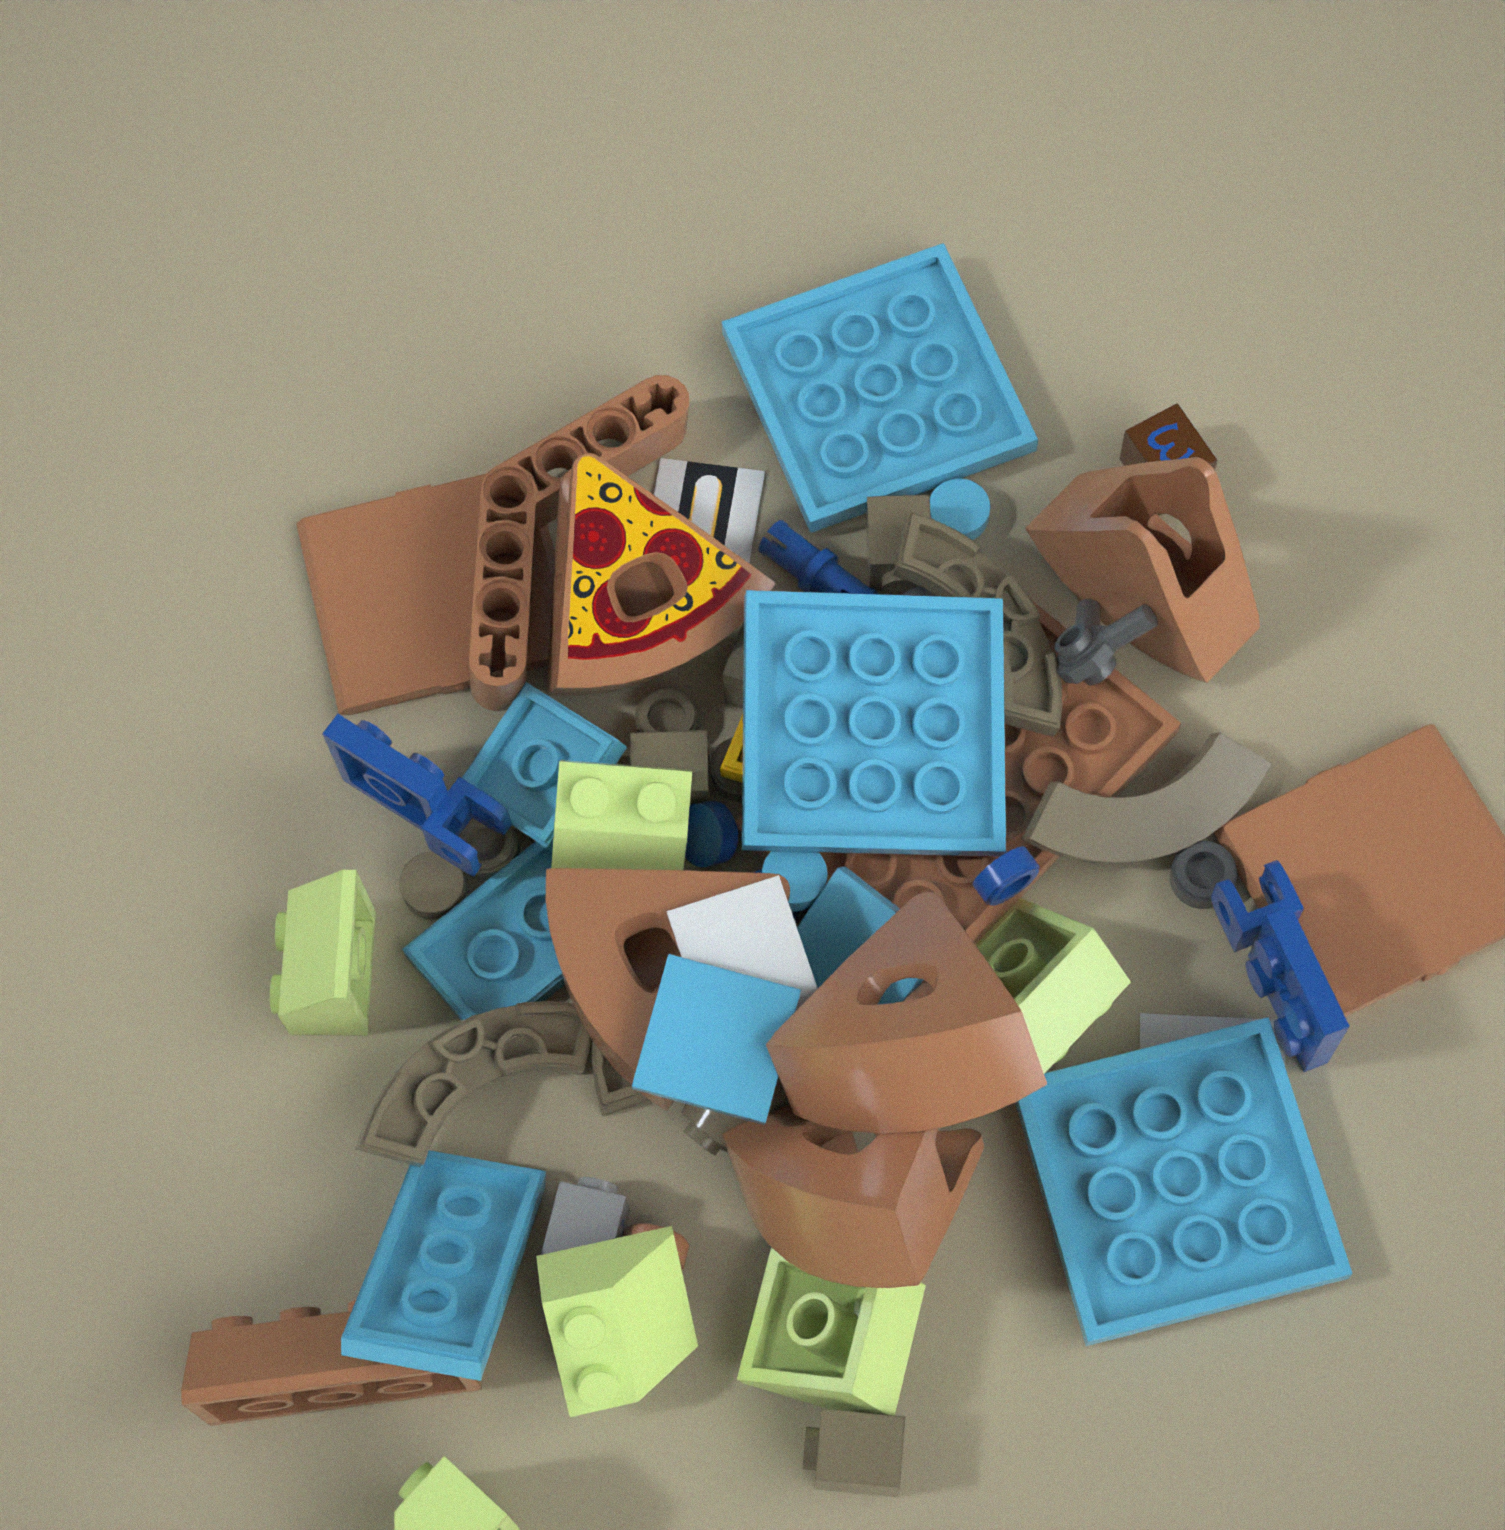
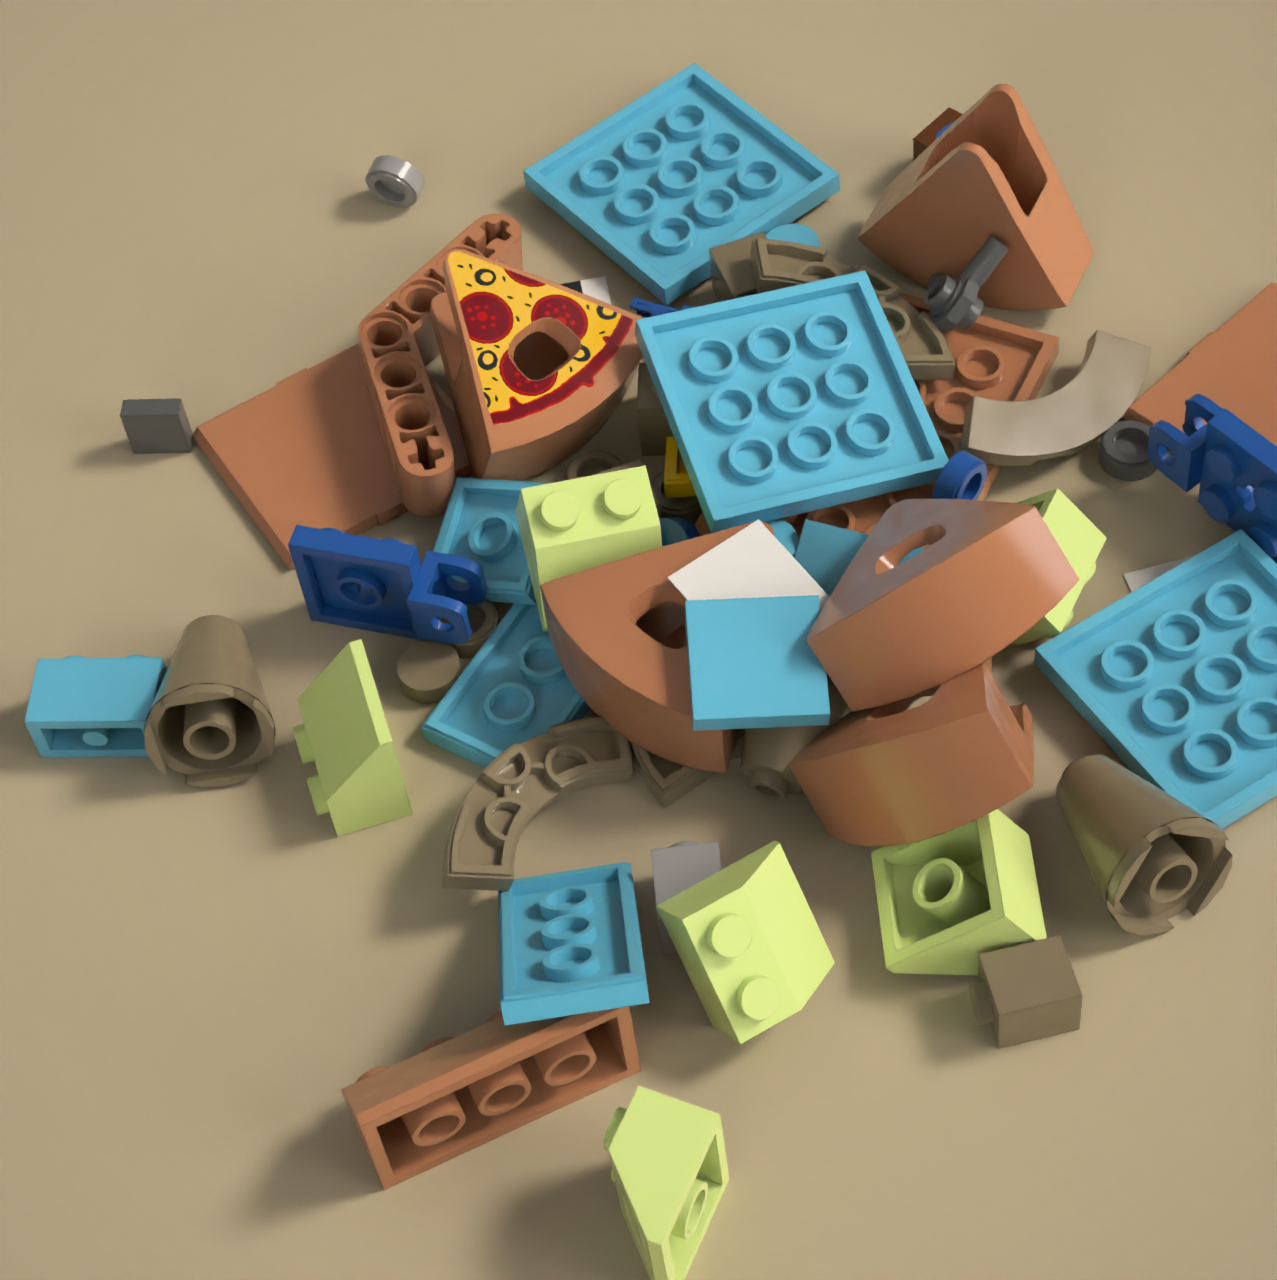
camera: 15 degrees left, 15 degrees down
(110, 818) = (92, 705): none -> medium azure brick
(210, 858) = (210, 708): none -> dark tan cone
(261, 508) = (157, 426): none -> dark grey tile
(589, 286) = (394, 181): none -> light grey tile
(1021, 1335) = (1141, 845): none -> dark tan cone

